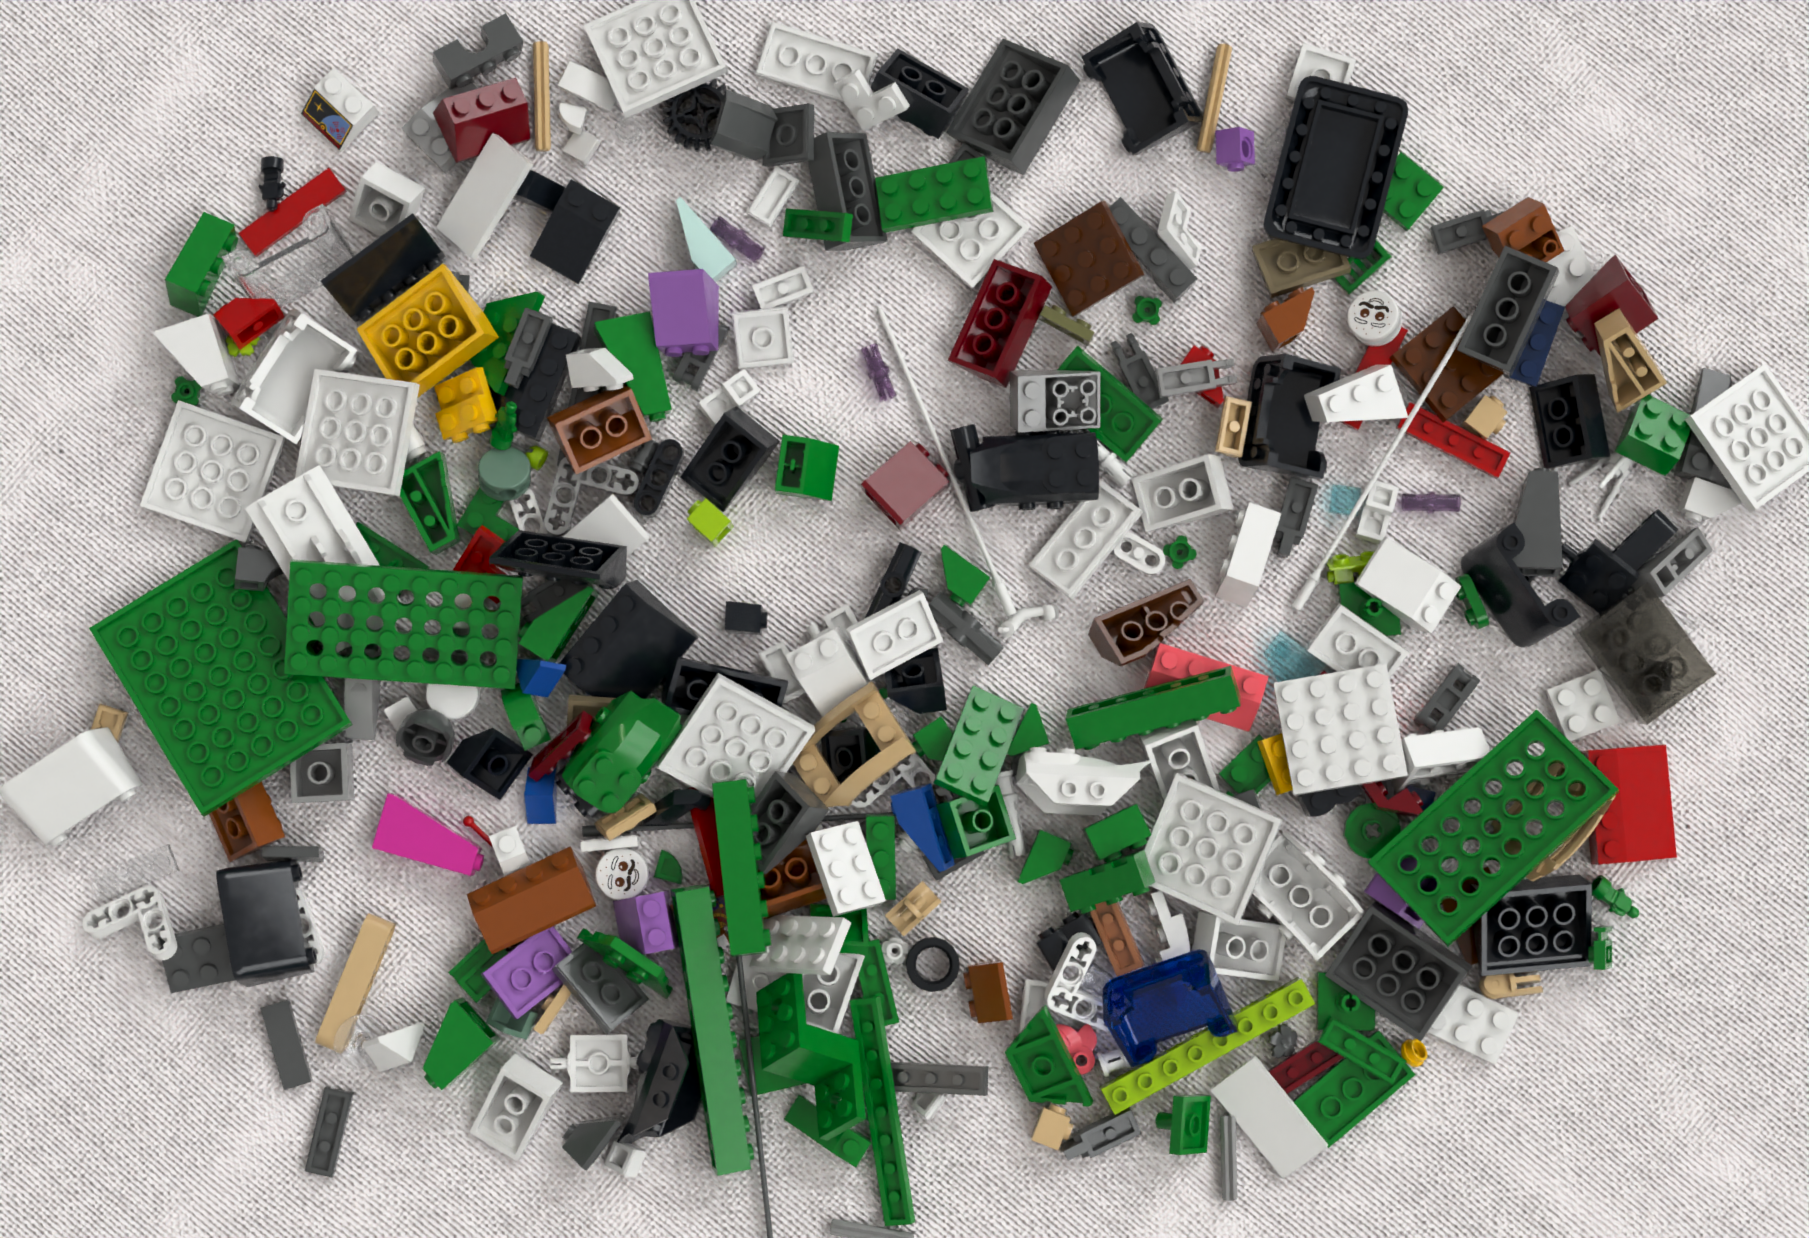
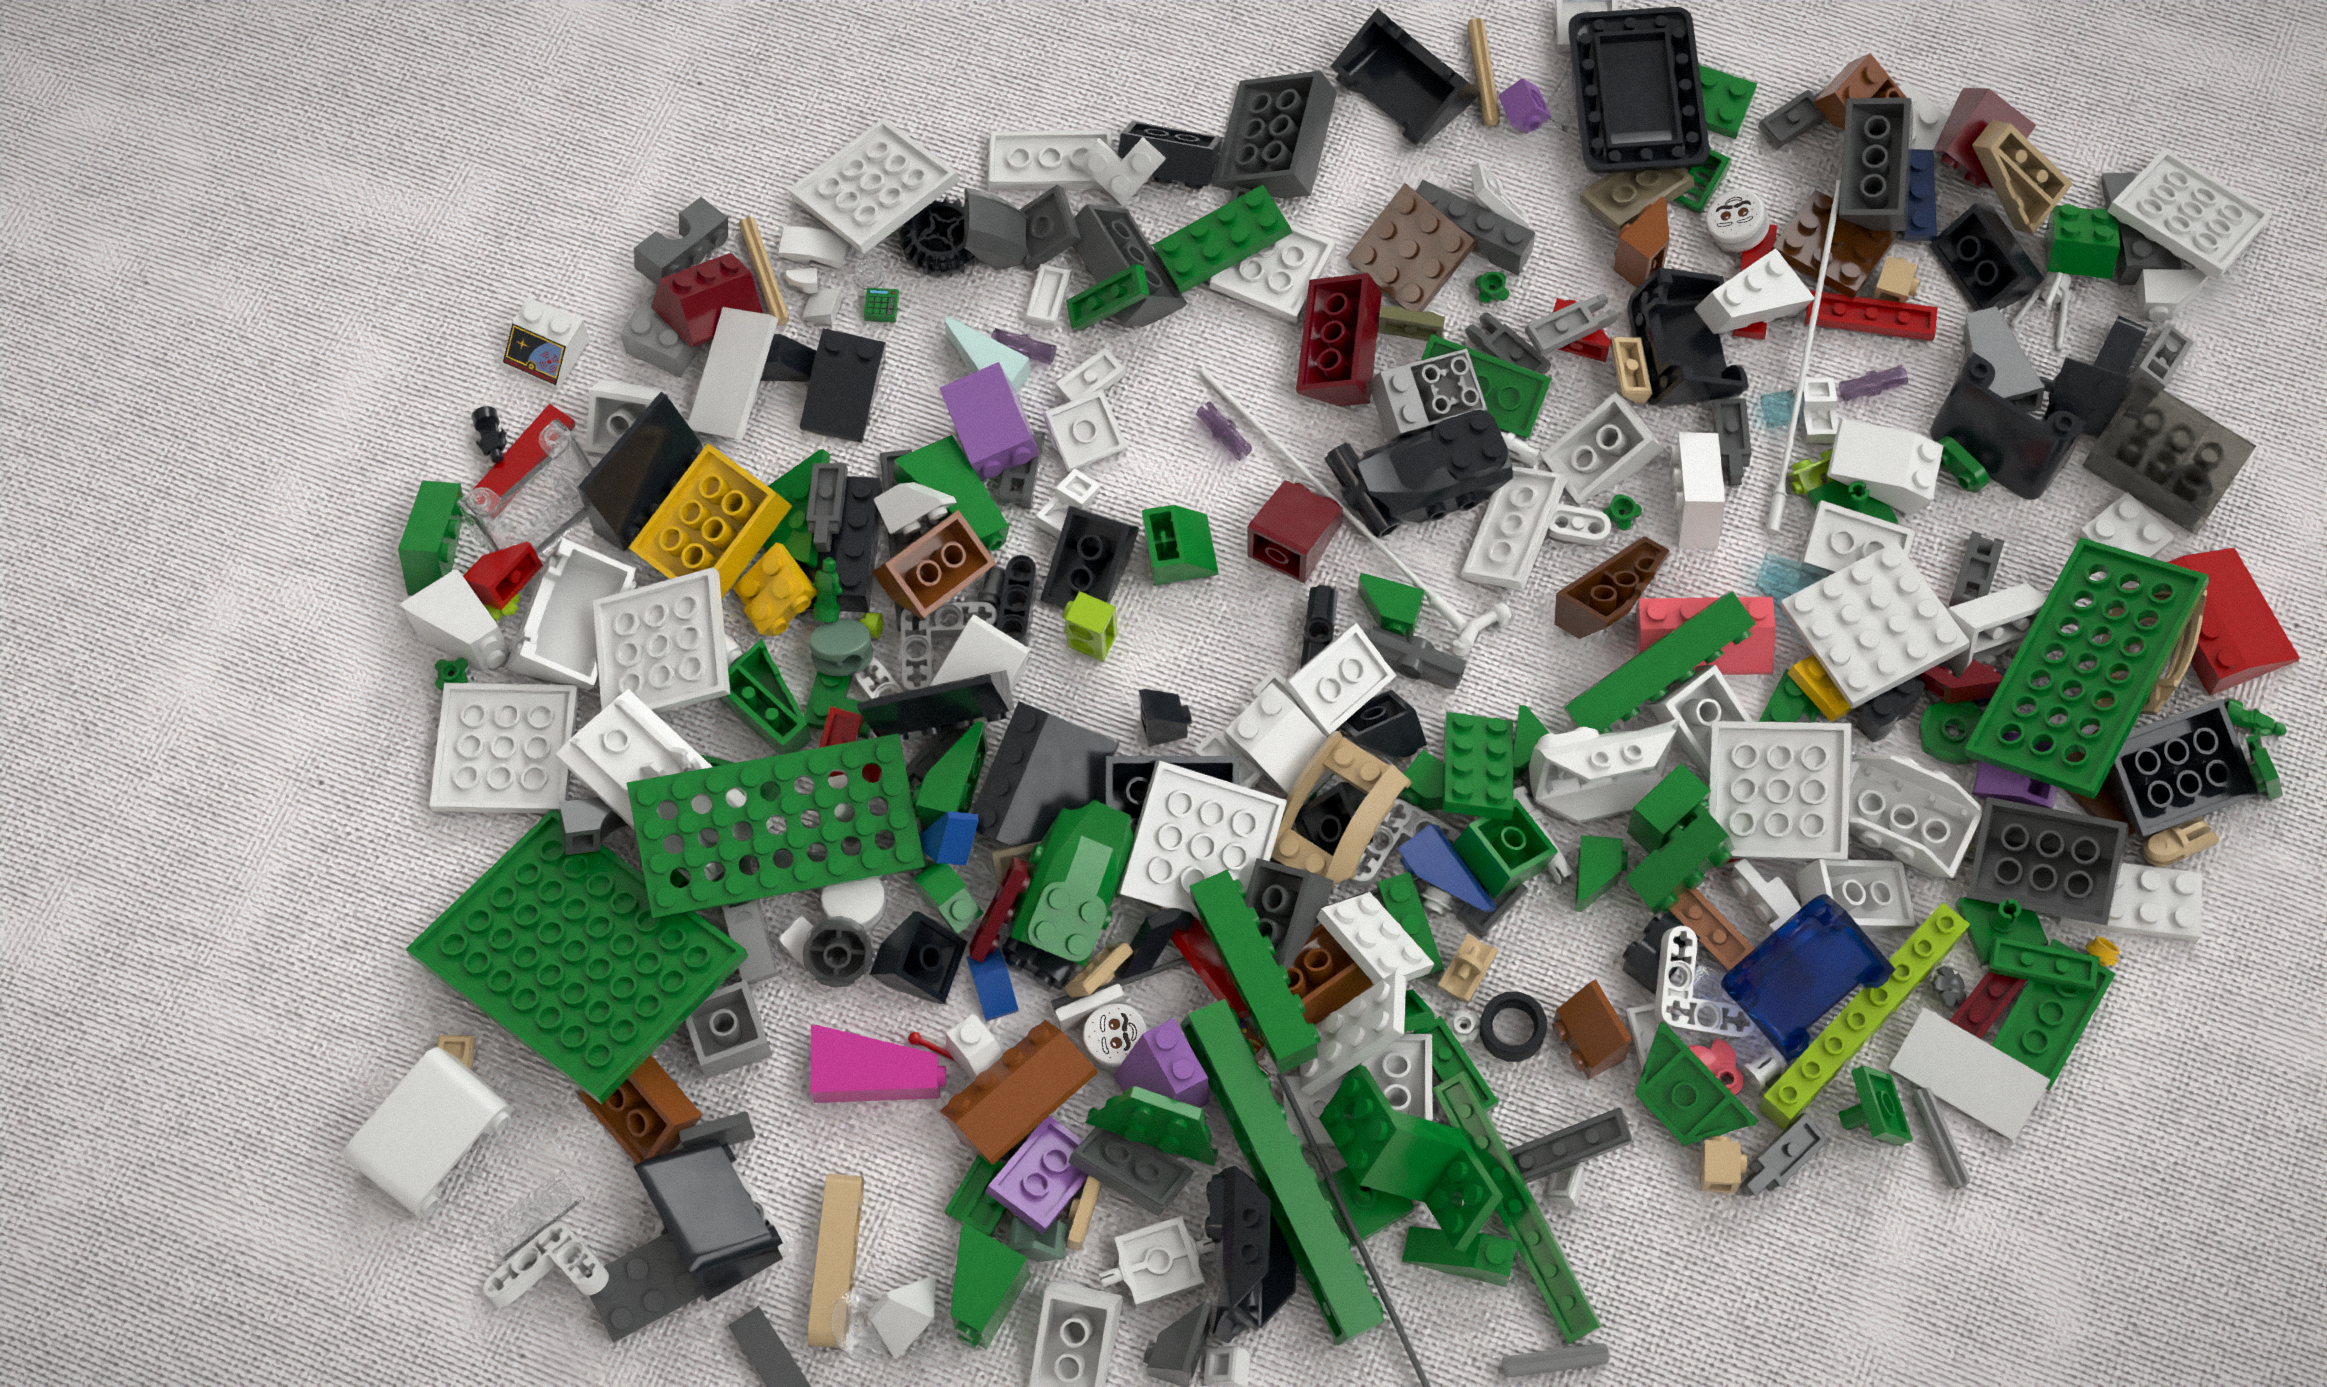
camera: 15 degrees left, 20 degrees down
(631, 160) = (881, 305): none -> green tile
(668, 868) = (1164, 1011): green tile -> none

